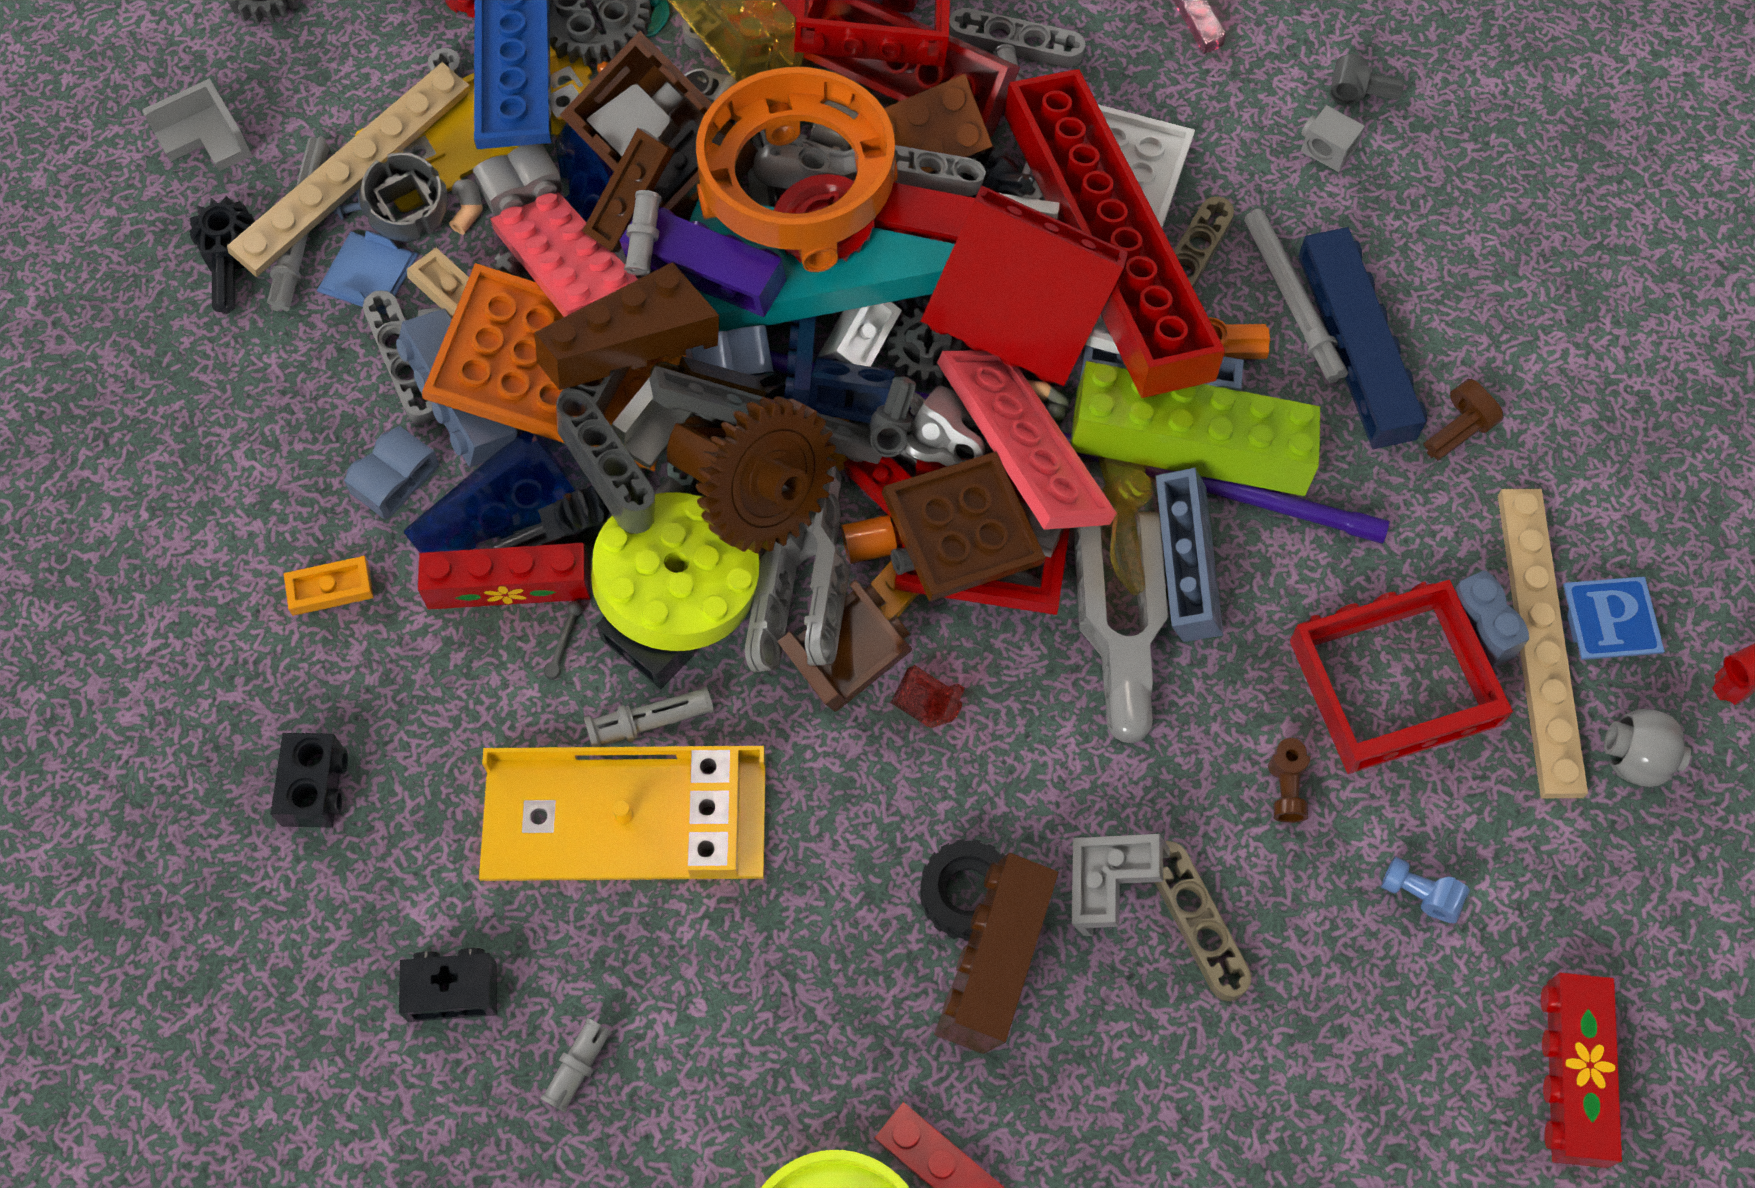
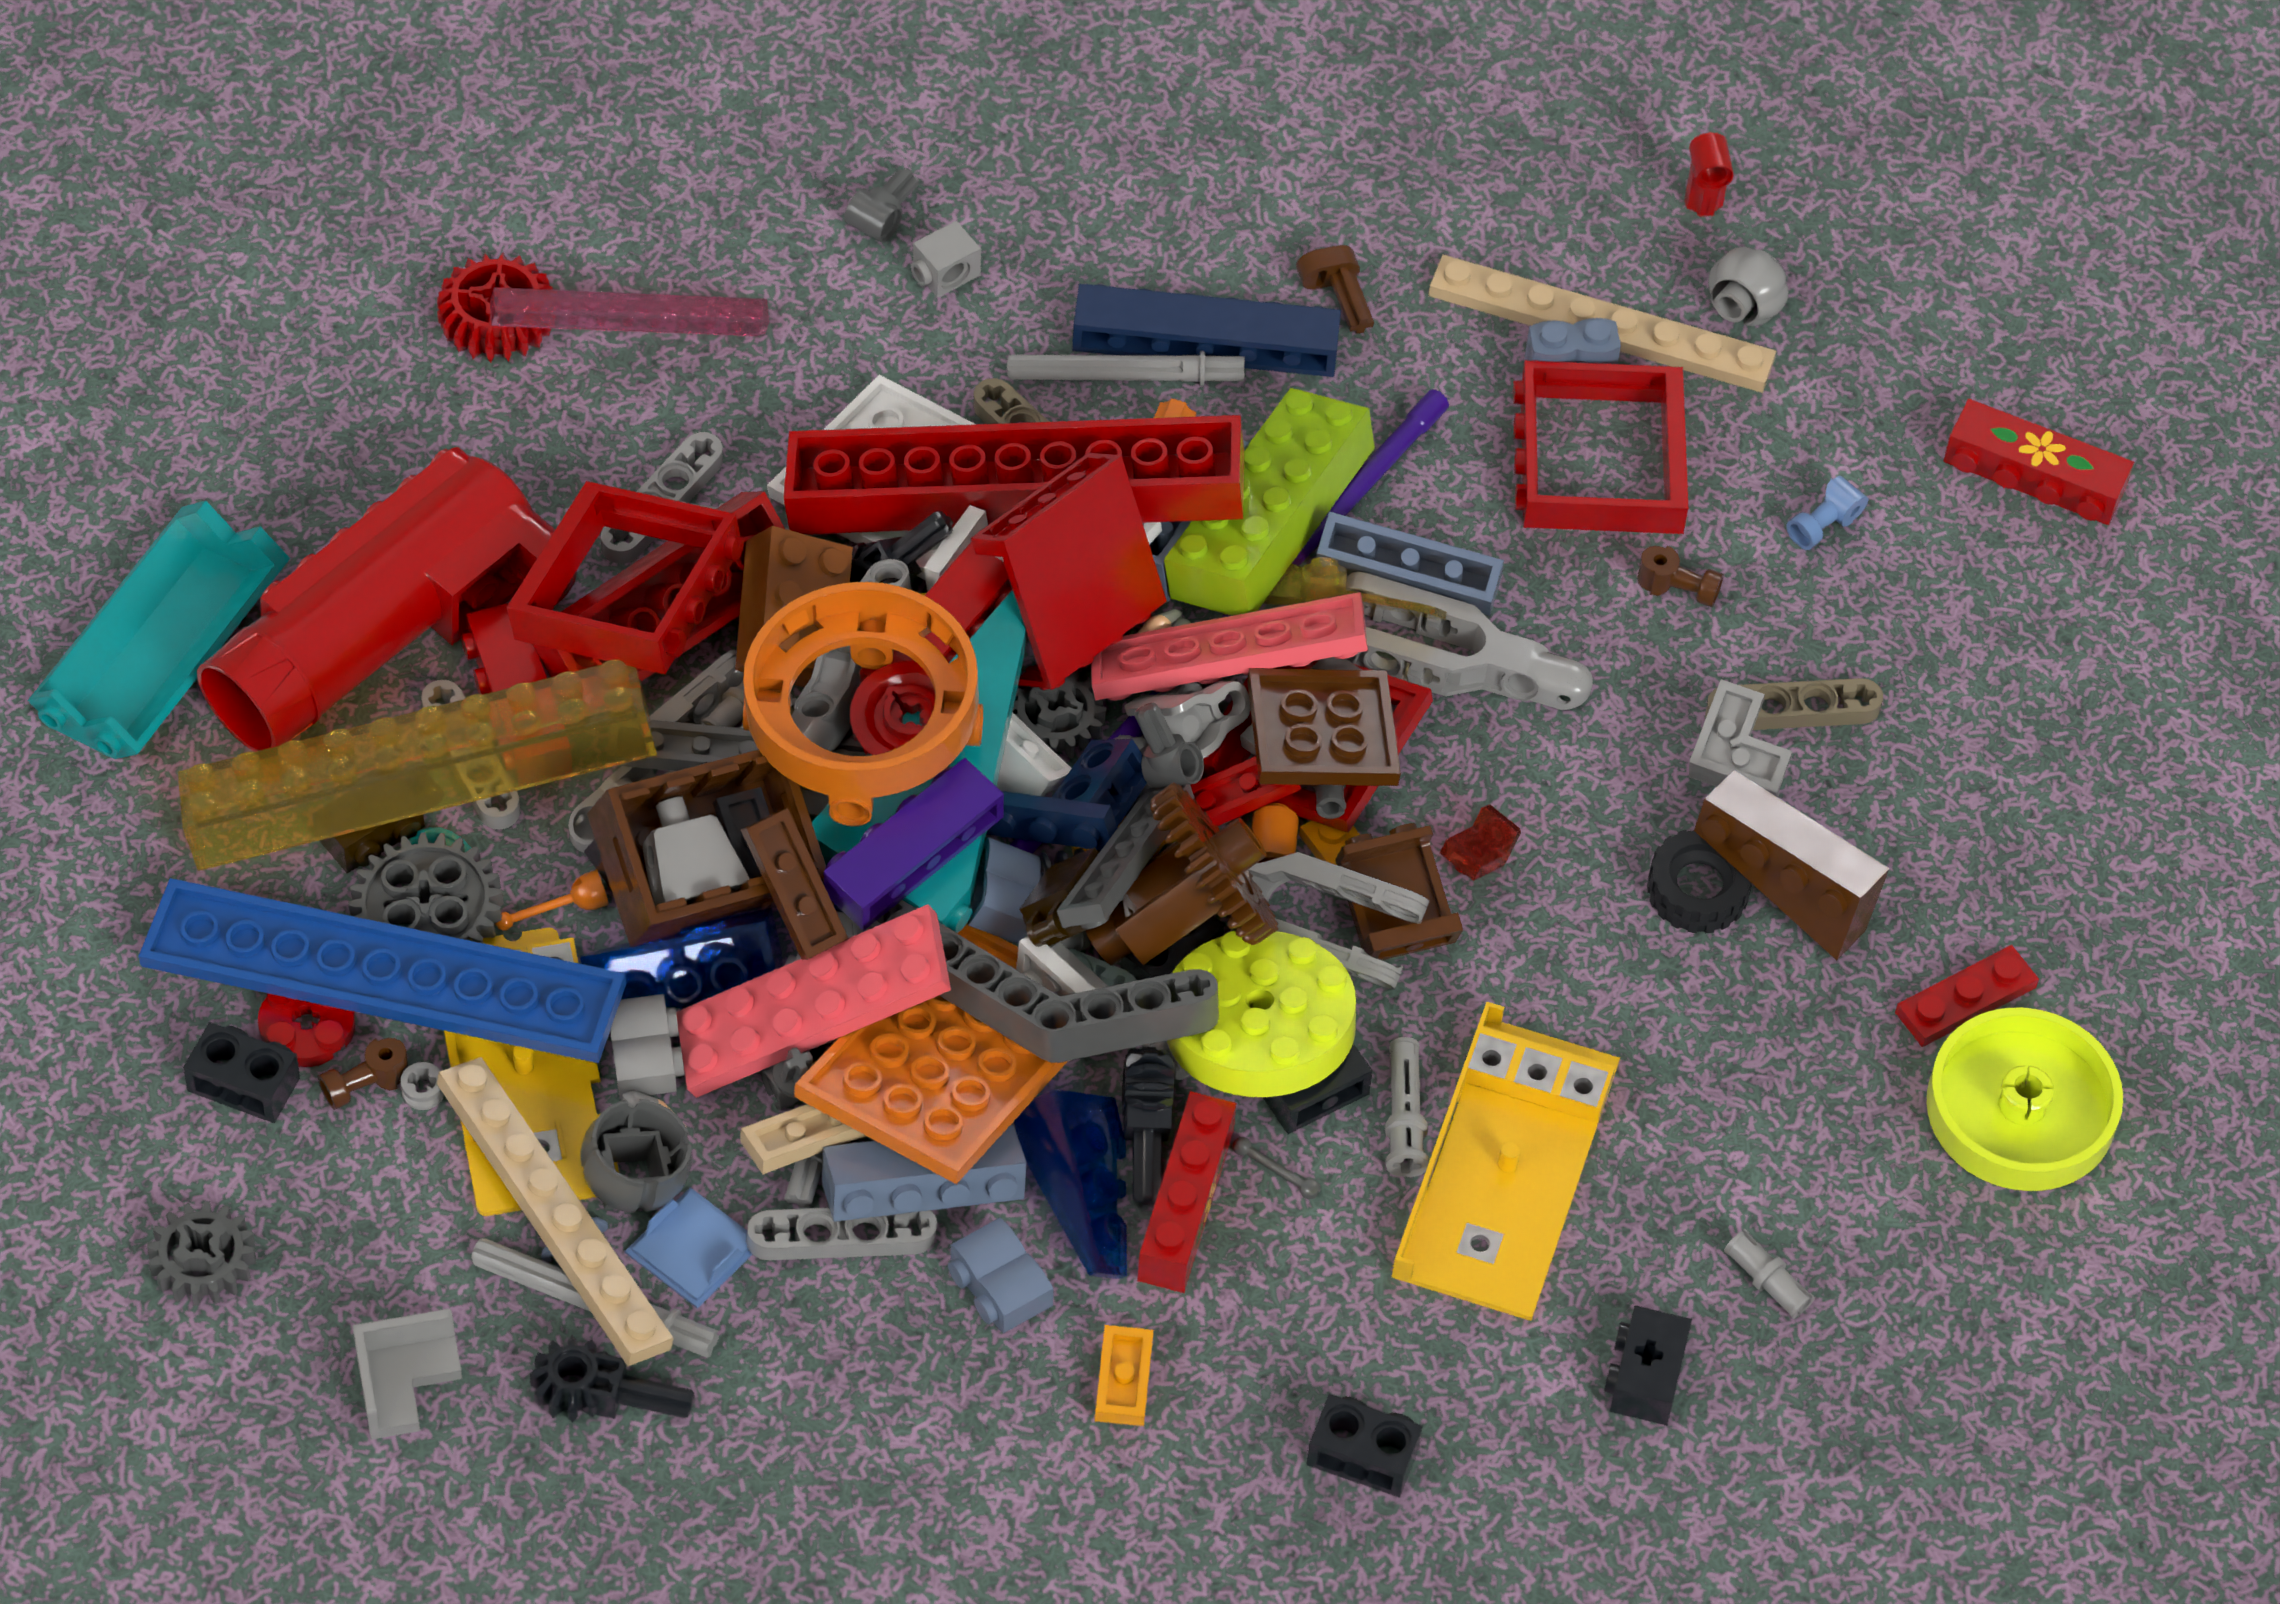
camera: 75 degrees left, 10 degrees down
(449, 30) = (382, 1065): none -> reddish brown leg
(627, 328) = (983, 929): reddish brown wedge -> none
(642, 233) = (876, 874): light grey pin -> none
(1612, 618) = (1606, 257): piece -> none

